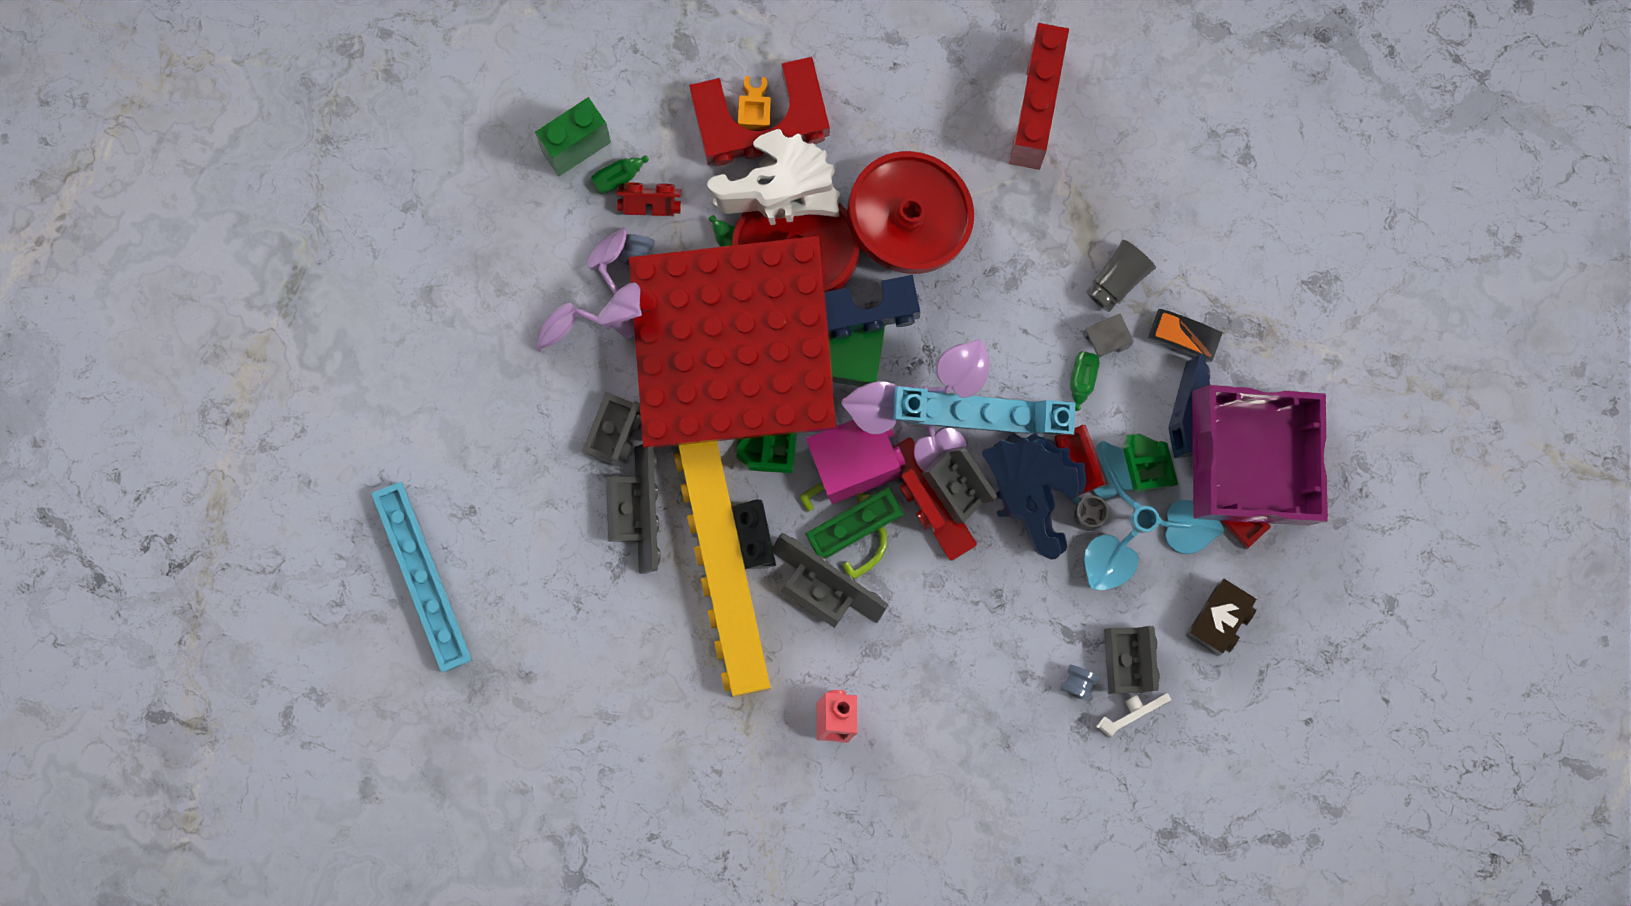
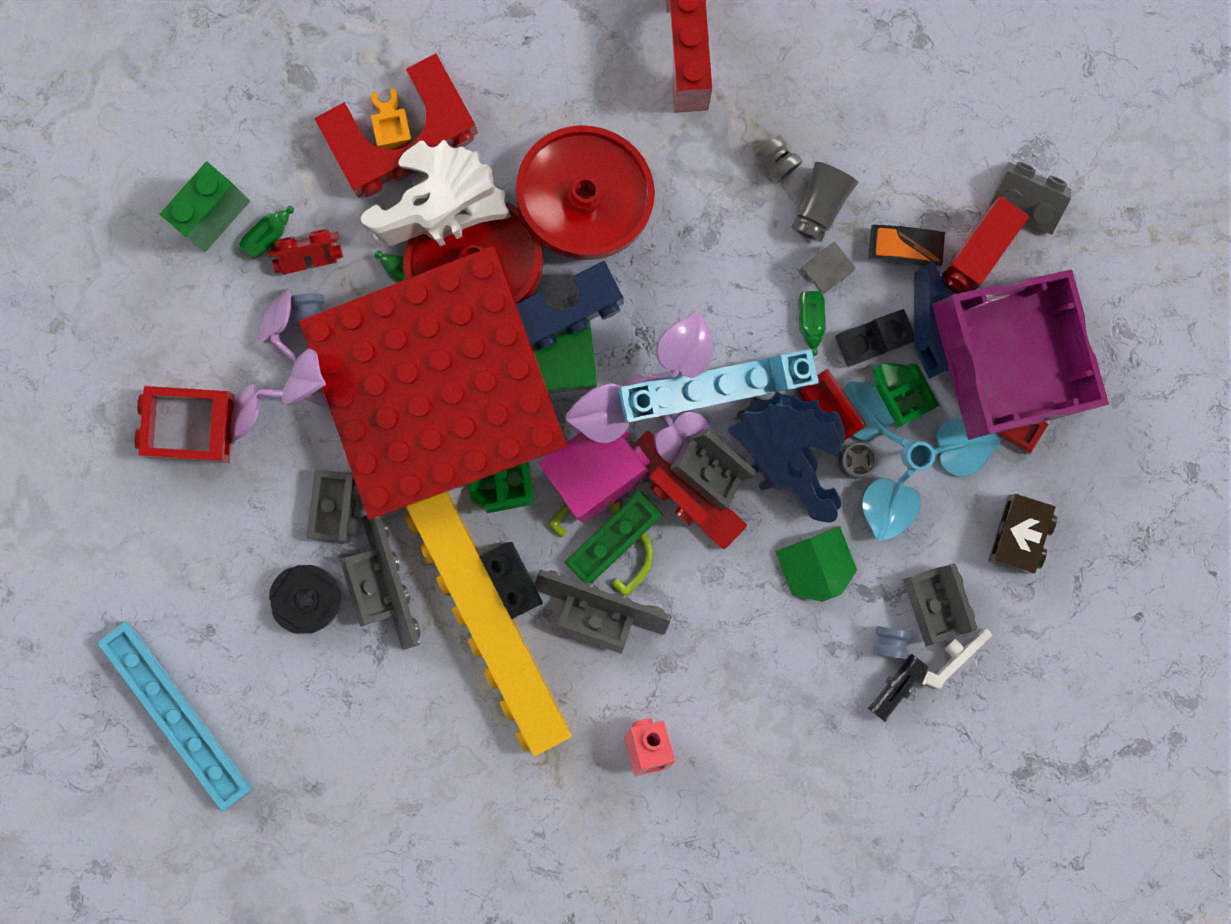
camera: 10 degrees left, 5 degrees up
(529, 340) = (220, 424): none -> red window
(546, 503) = (285, 603): none -> black plate
(1031, 597) = (818, 565): none -> green slope
(1056, 738) = (912, 669): none -> black pin
(1090, 228) = (772, 153): none -> flat silver wheel
(1136, 409) = (875, 338): none -> black slope
(1252, 352) = (984, 246): none -> red brick
(1307, 321) = (1035, 195): none -> dark grey bracket

